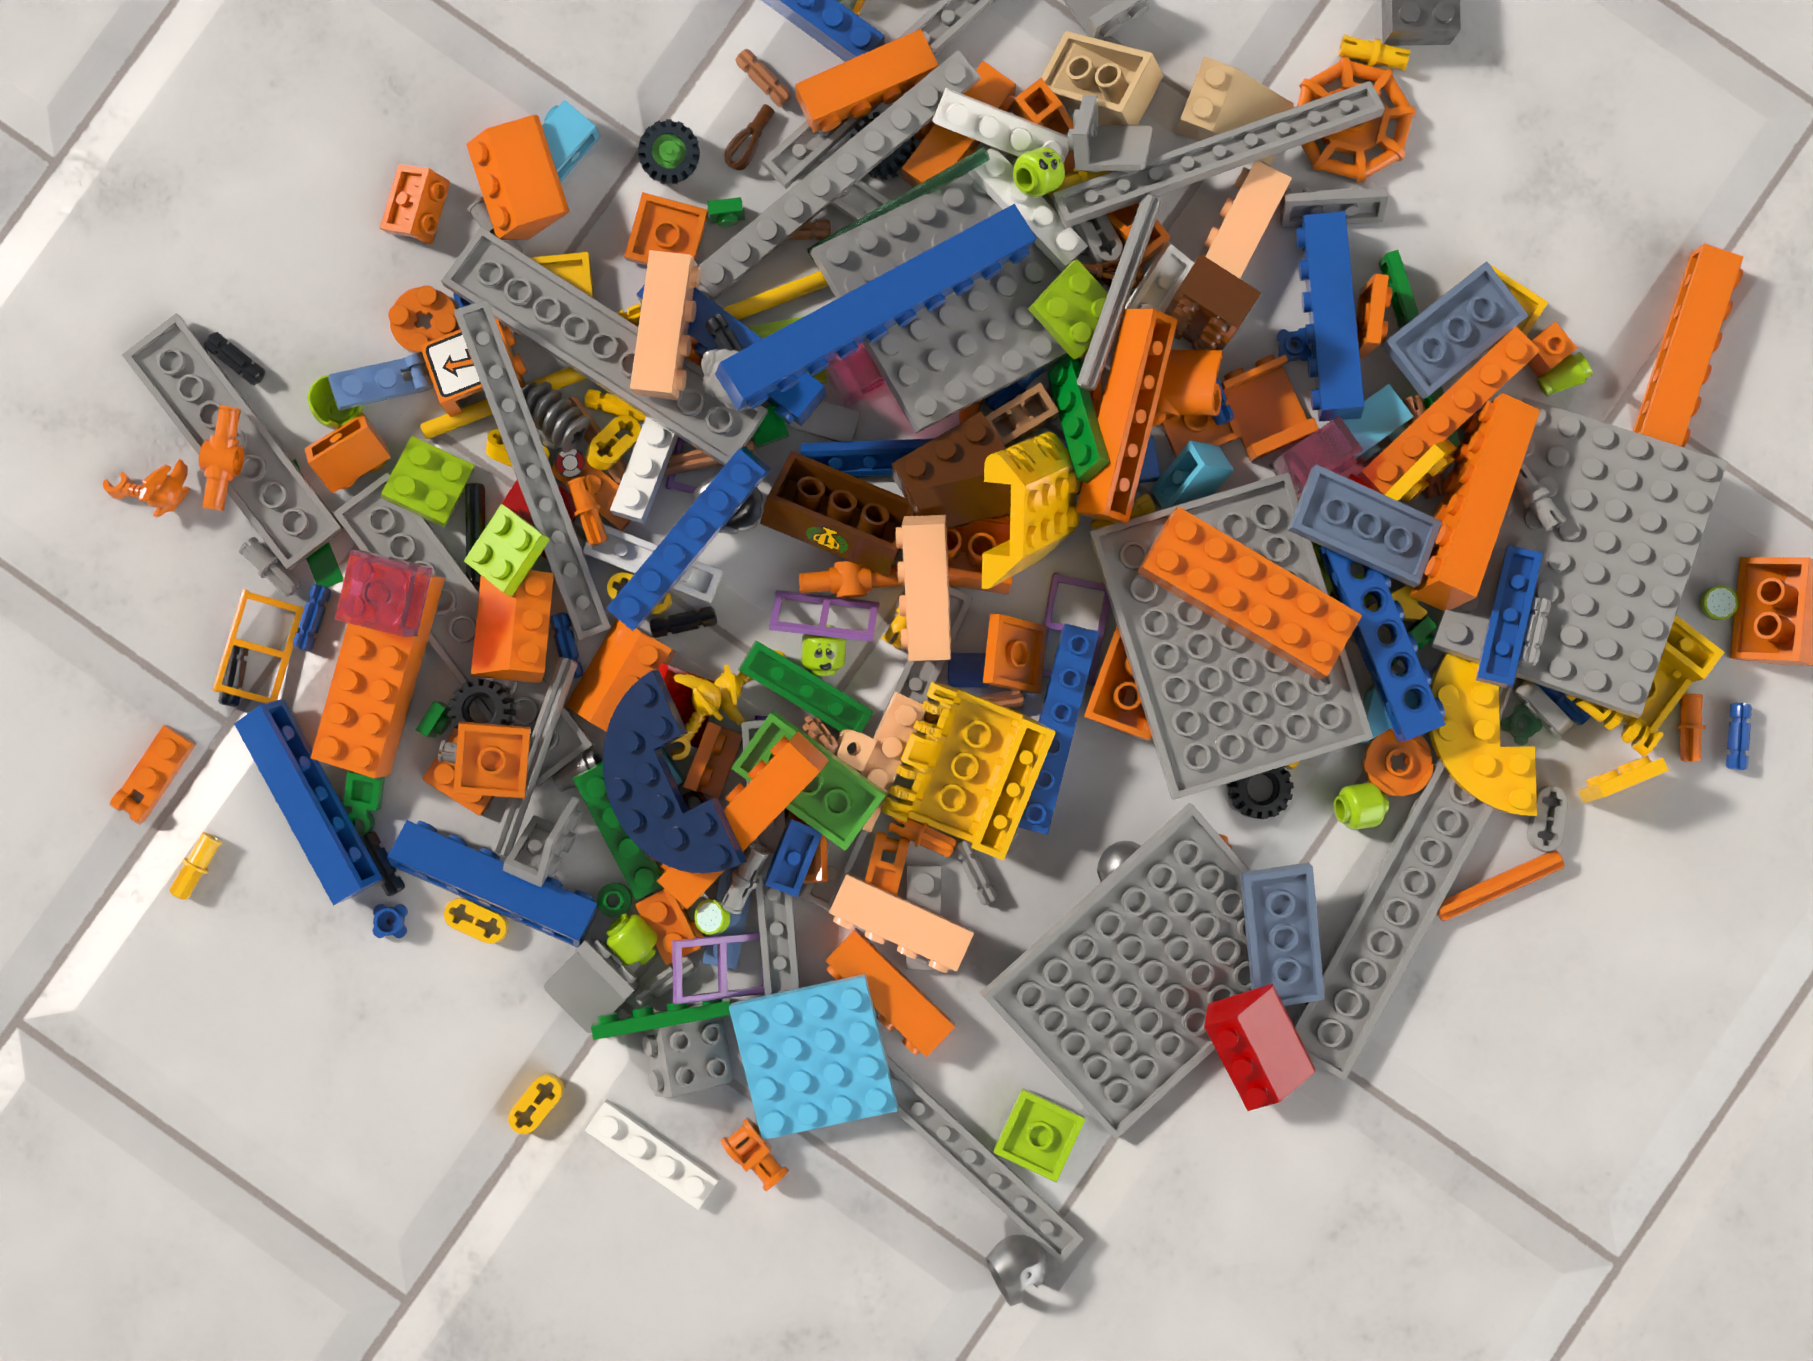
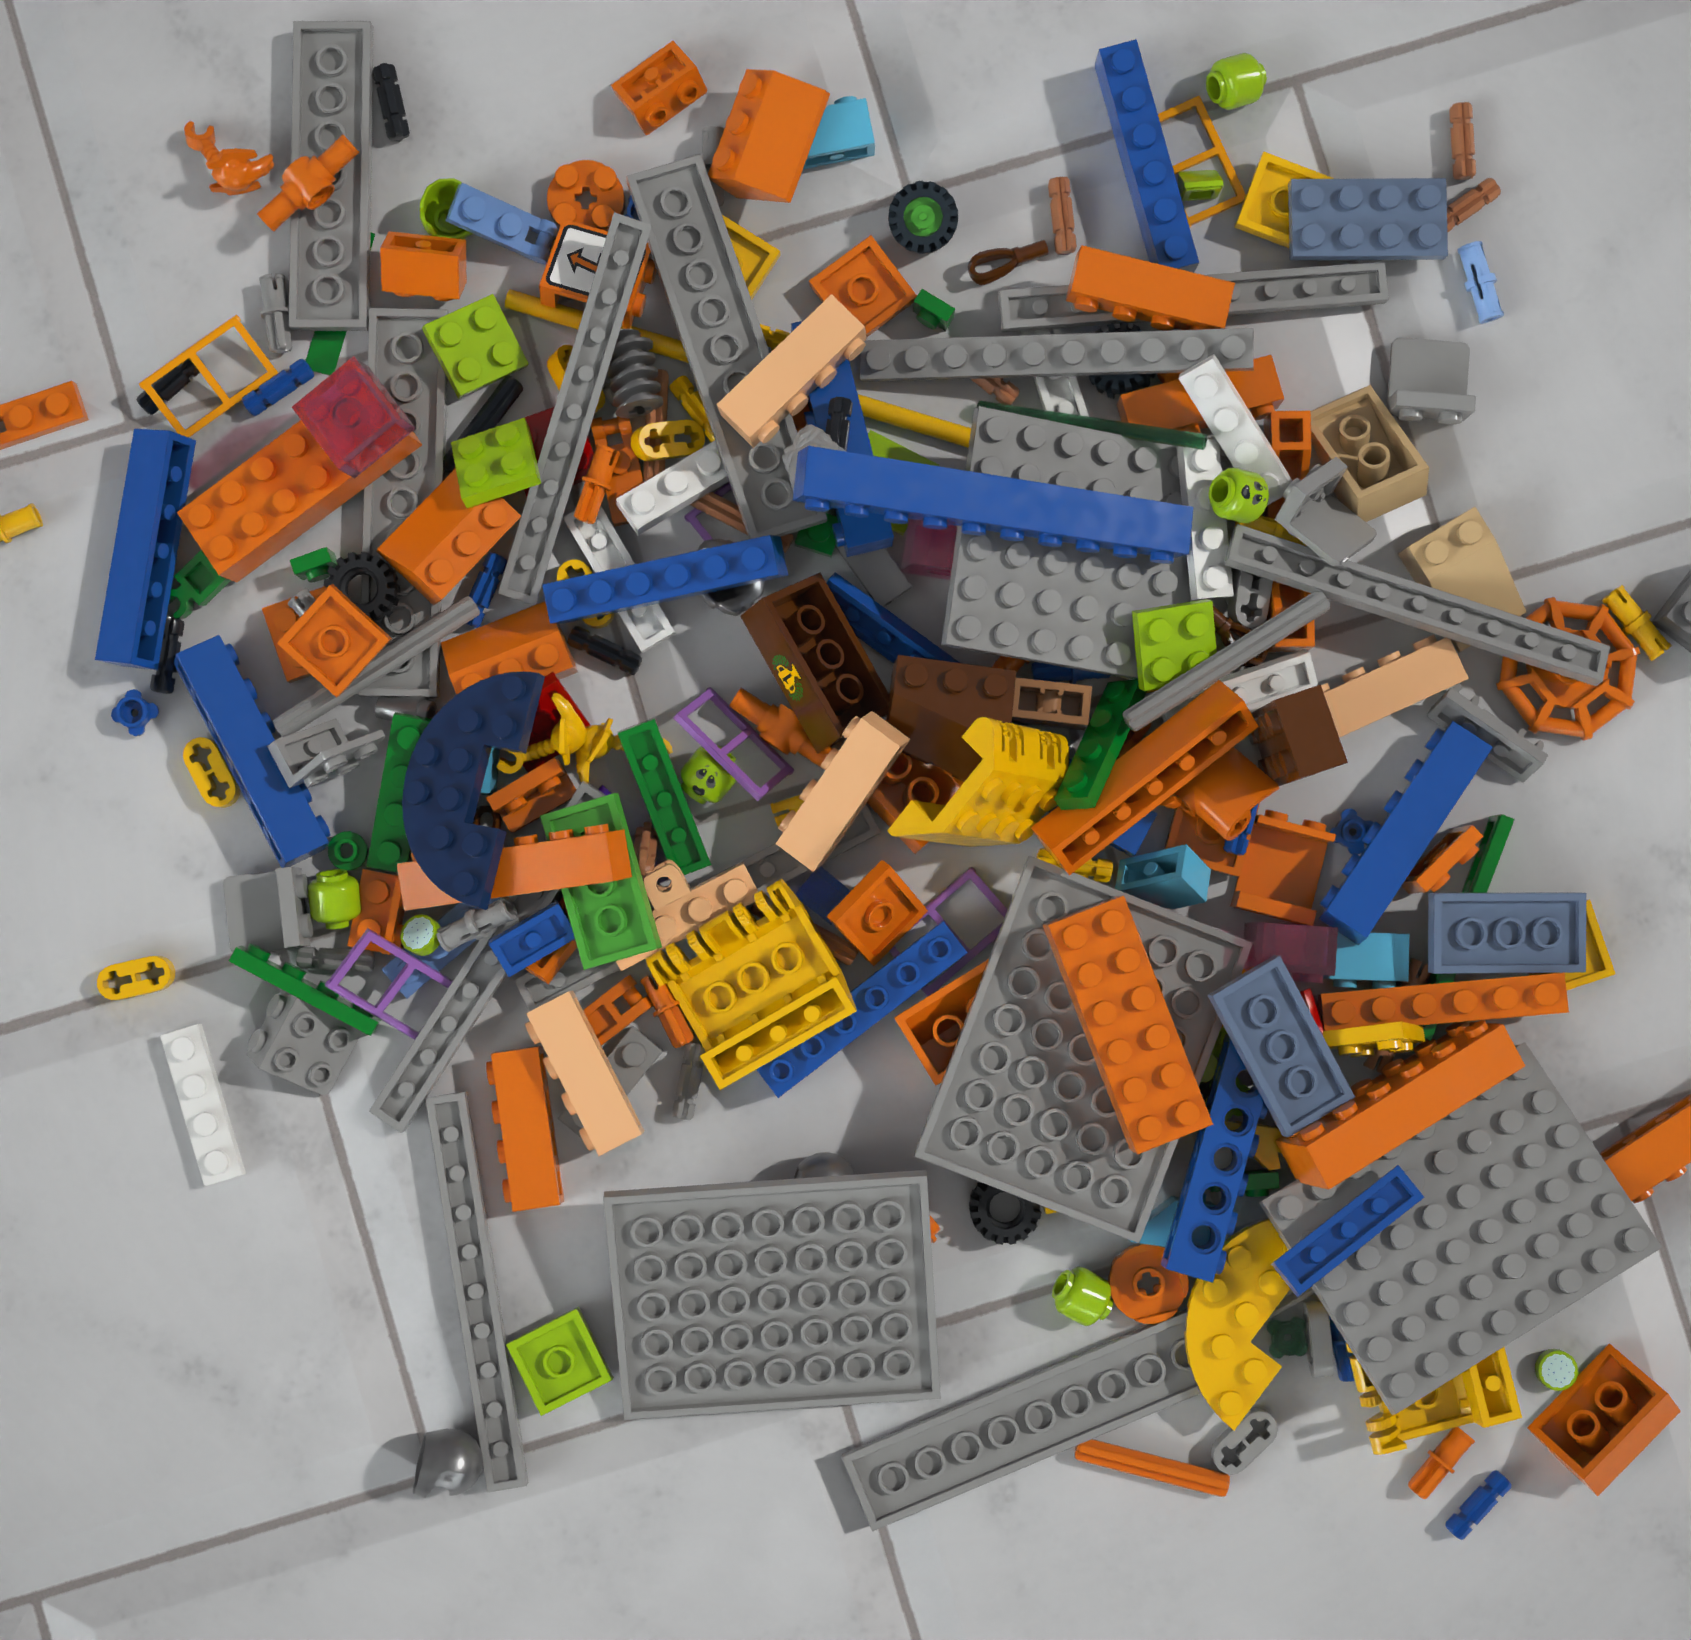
camera: 40 degrees right, 0 degrees up
(570, 463) = (614, 429): sticker -> none
(754, 1154) = (293, 1175): orange connector -> none
(813, 1057) = (413, 1131): medium azure plate -> none
(1258, 1046) = (816, 1438): slope -> none
(1283, 932) = (916, 1356): sand blue plate -> none
(1535, 631) = (1360, 1262): light grey axle -> none
(1537, 500) = (1460, 1145): light grey pin -> none
(1554, 348) = (1585, 1018): orange brick -> none
(1565, 375) = (1579, 1052): lime cone -> none
(1630, 774) = (1350, 1461): yellow plate -> none

